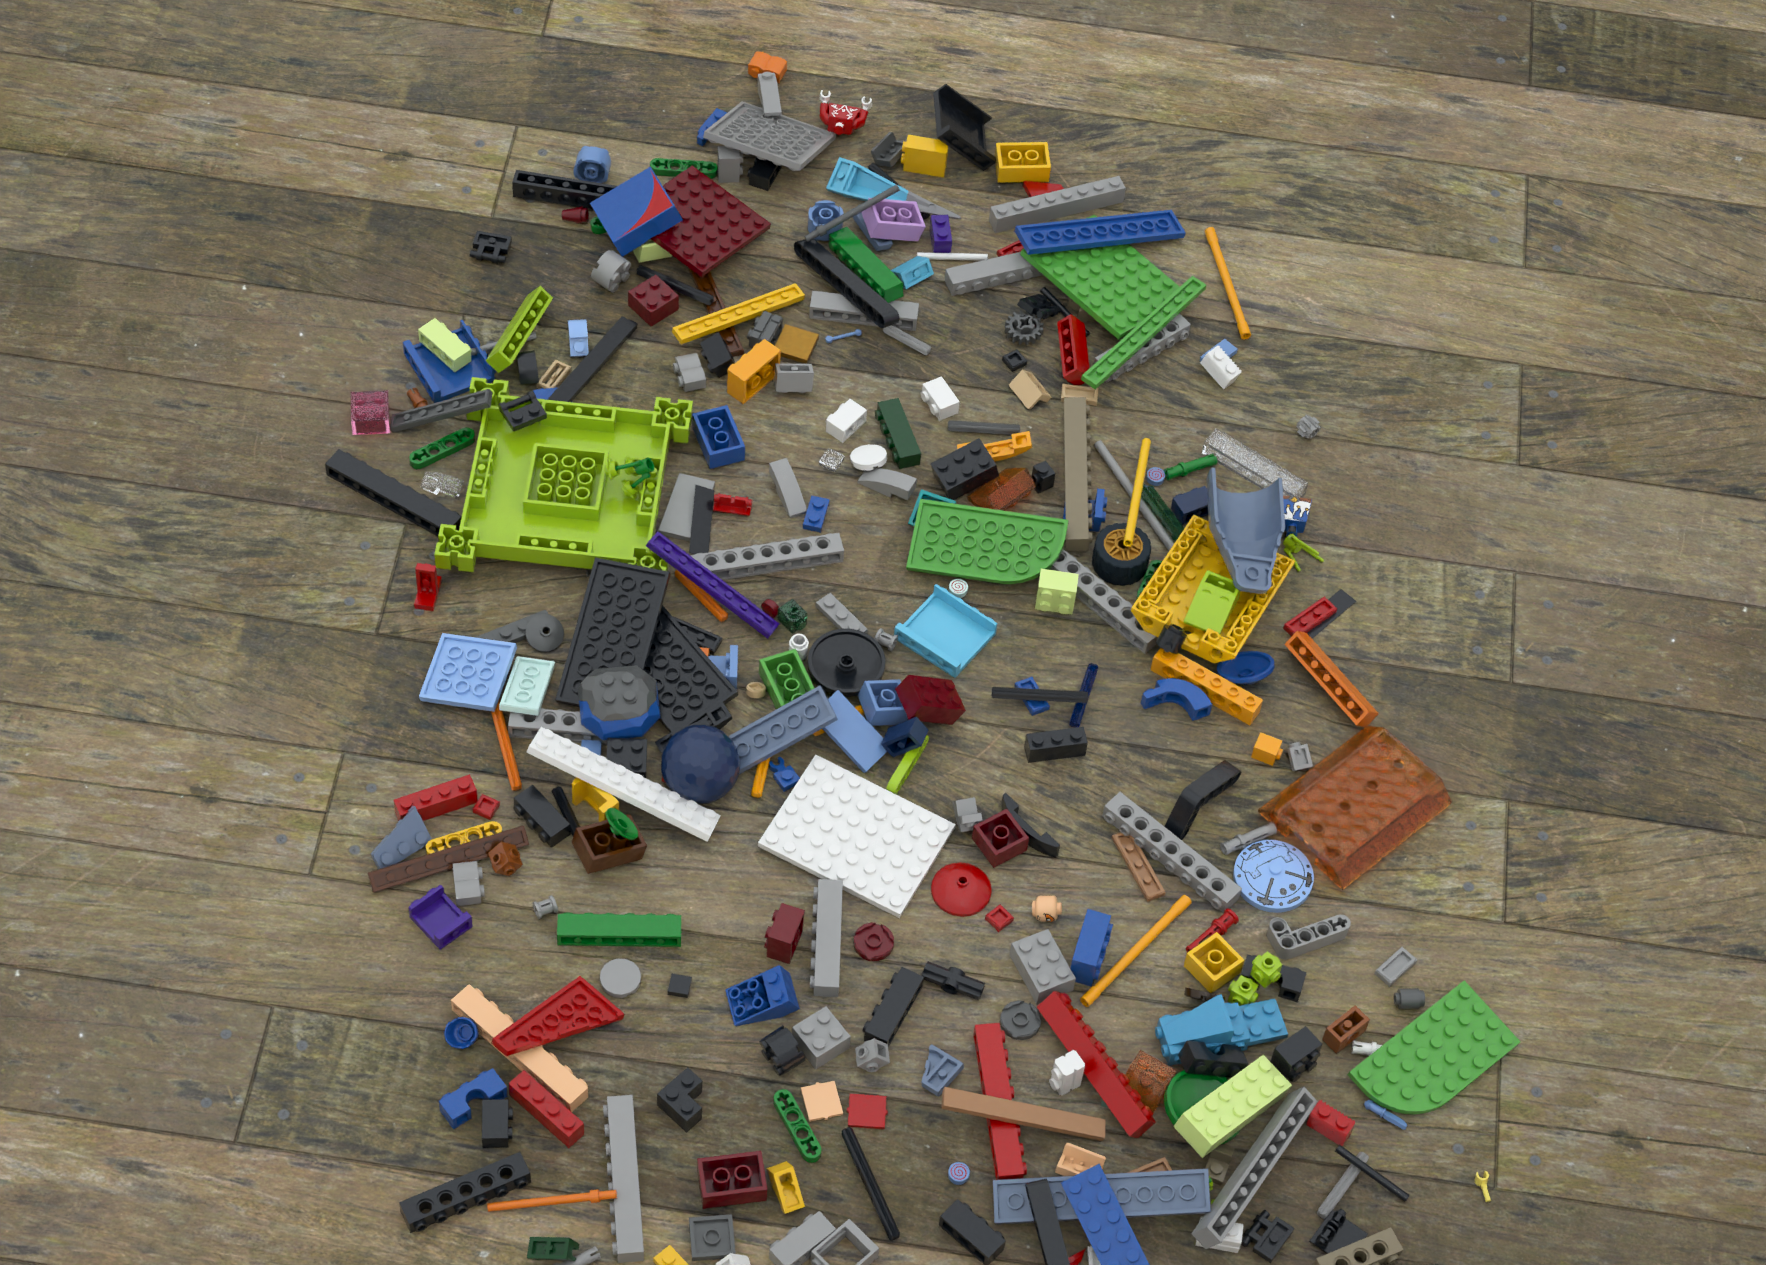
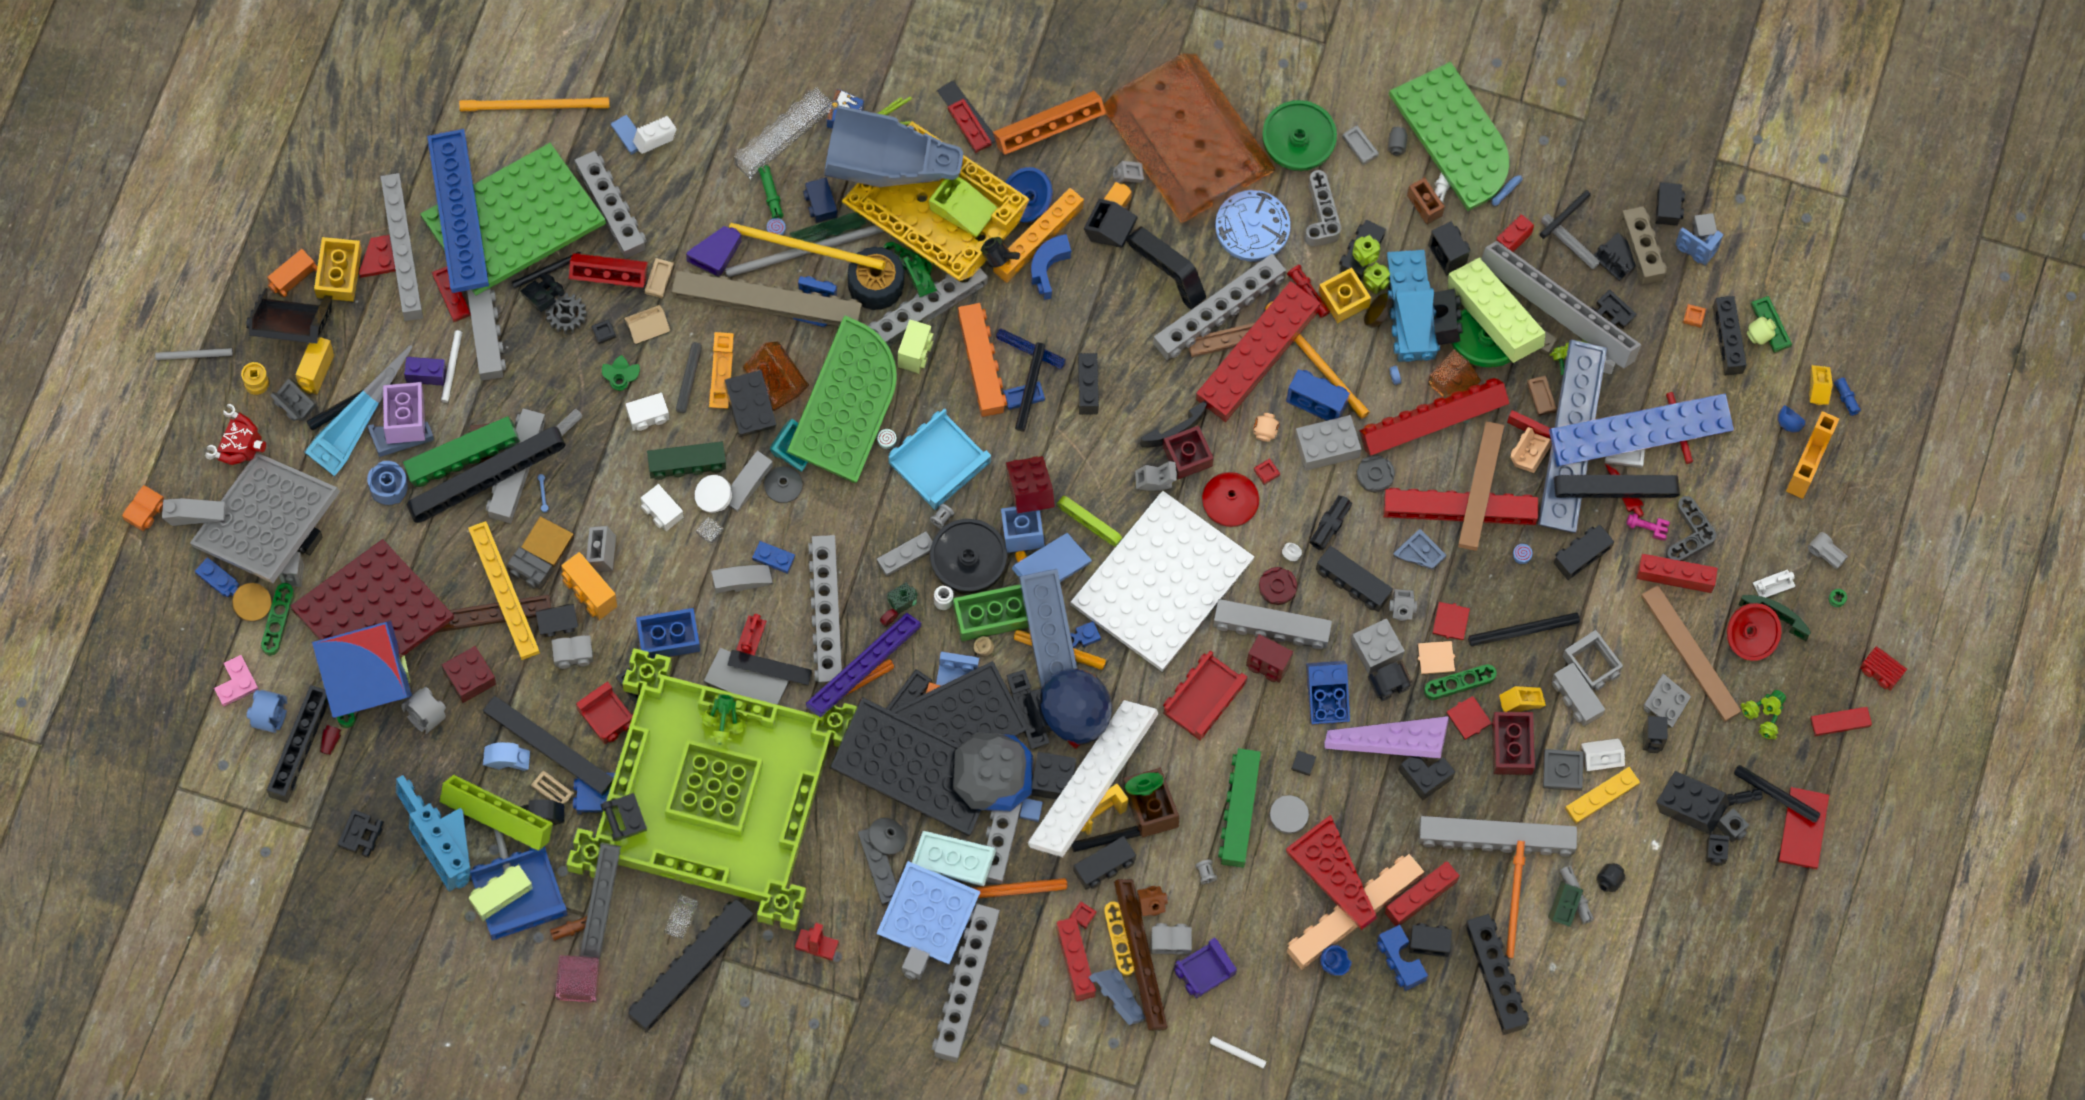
camera: 80 degrees left, 15 degrees up
(333, 711) = (951, 1050): none -> light grey brick
(354, 959) = (1238, 1052): none -> white bar
(415, 669) = (915, 963): none -> light grey brick
(440, 445) = (629, 913): green beam -> none
(491, 292) = (440, 839): none -> dark azure wedge
(622, 152) = (240, 683): none -> bright pink plate
(638, 396) = (605, 713): none -> red panel
(677, 285) = (449, 650): black axle -> none
(693, 146) = (251, 602): none -> pearl gold tile
(718, 1071) = (1407, 738): none -> lavender wing
(738, 885) = (1204, 695): none -> red panel
(758, 1137) = (1468, 717): none -> red piece
(822, 229) = (410, 486): dark grey bar -> none
(892, 519) = (786, 492): none -> dark grey dish
(904, 121) = (255, 378): none -> yellow wheel
(904, 737) = (1067, 515): dark blue brick -> none
(913, 271) = (467, 408): medium azure panel -> none
(913, 948) = (1291, 551): none -> white tile
(920, 85) = (194, 354): none -> light grey bar
(975, 377) = (620, 371): none -> green plate
(1007, 131) = (291, 273): none -> orange brick
(1043, 476) = (764, 332): black brick -> none
(1059, 652) = (981, 360): none -> orange brick
(1067, 1072) = (1443, 441): white brick -> none
(1112, 1154) = (1523, 422): none -> red tile
(1118, 431) = (715, 251): none -> dark purple slope
(1128, 888) = (1258, 351): none -> red brick
(1129, 584) = (919, 276): none -> green hinge
(1136, 1024) = (1395, 376): none -> medium blue tile
(1143, 332) = (603, 196): bright green plate -> none
(1234, 740) = (1109, 223): none -> black slope
(1240, 841) = (1214, 243): light grey pin -> none
(1308, 427) = (740, 71): light grey gear -> none
(1386, 902) = (1299, 135): none -> green dish
(1482, 1182) = (1582, 128): light yellow hand -> none

